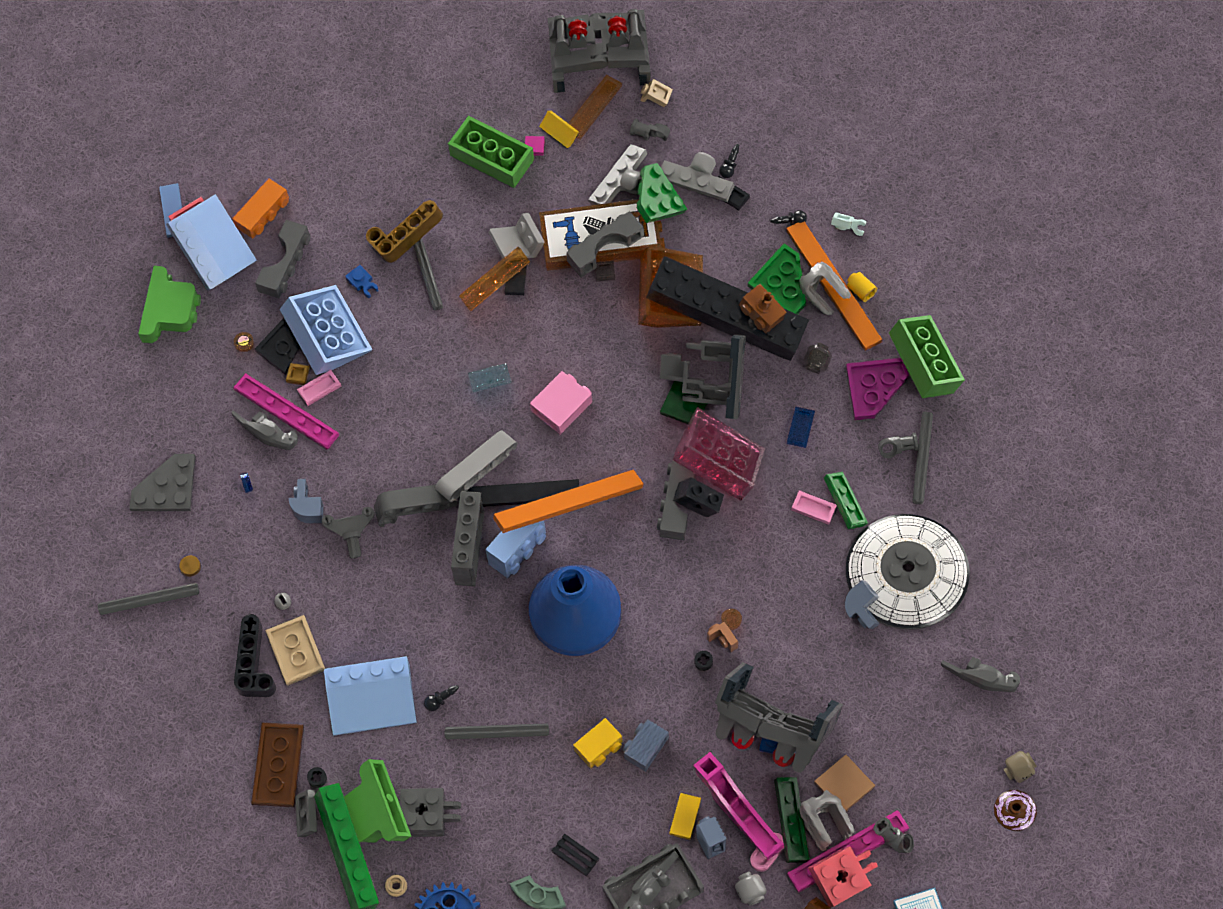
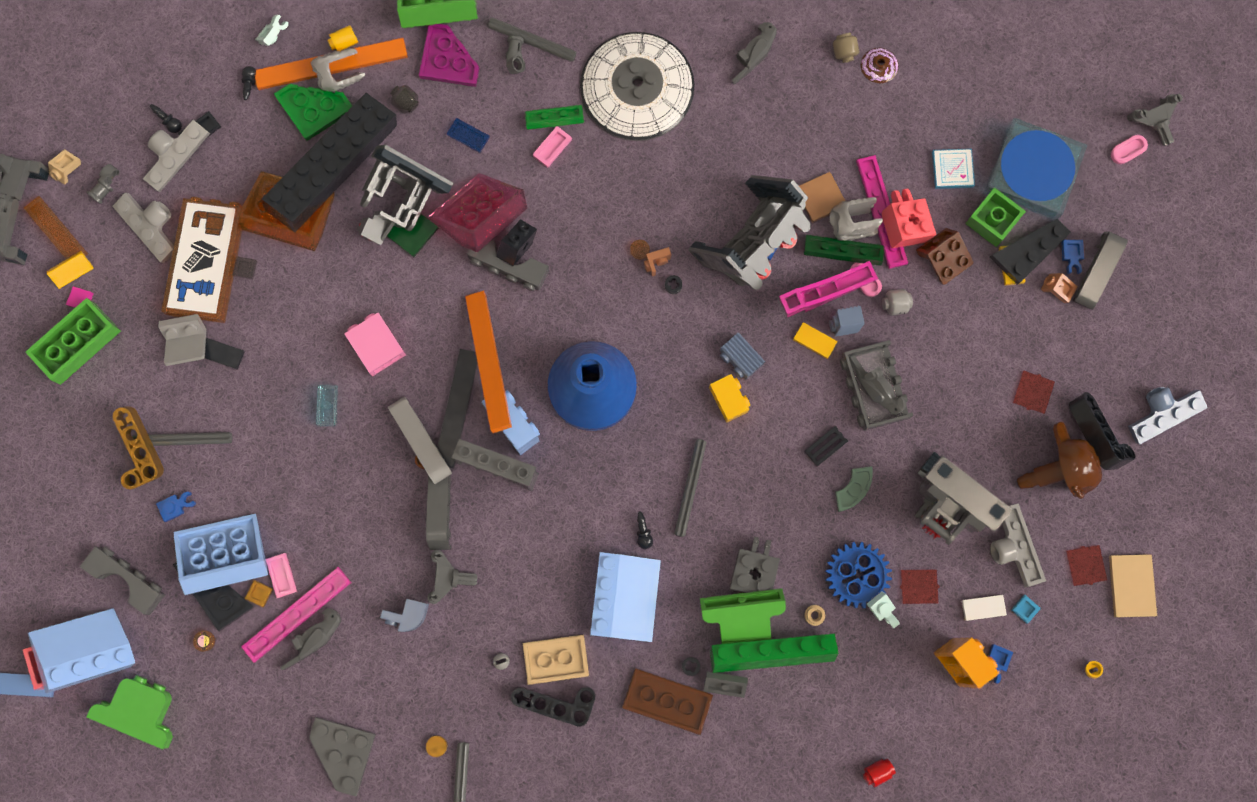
camera: 80 degrees left, 15 degrees up
(246, 482) = (364, 670): clear blue tile -> none
(261, 208) = (55, 590): orange brick -> none
(494, 278) = (220, 373): clear orange tile -> none
(623, 230) = (214, 233): dark grey arch -> none
(657, 195) = (184, 192): green plate -> none
(762, 308) = (347, 125): dark orange brick -> none
(857, 602) = (658, 133): sand blue brick -> none
(891, 839) = (886, 164): dark grey connector -> none

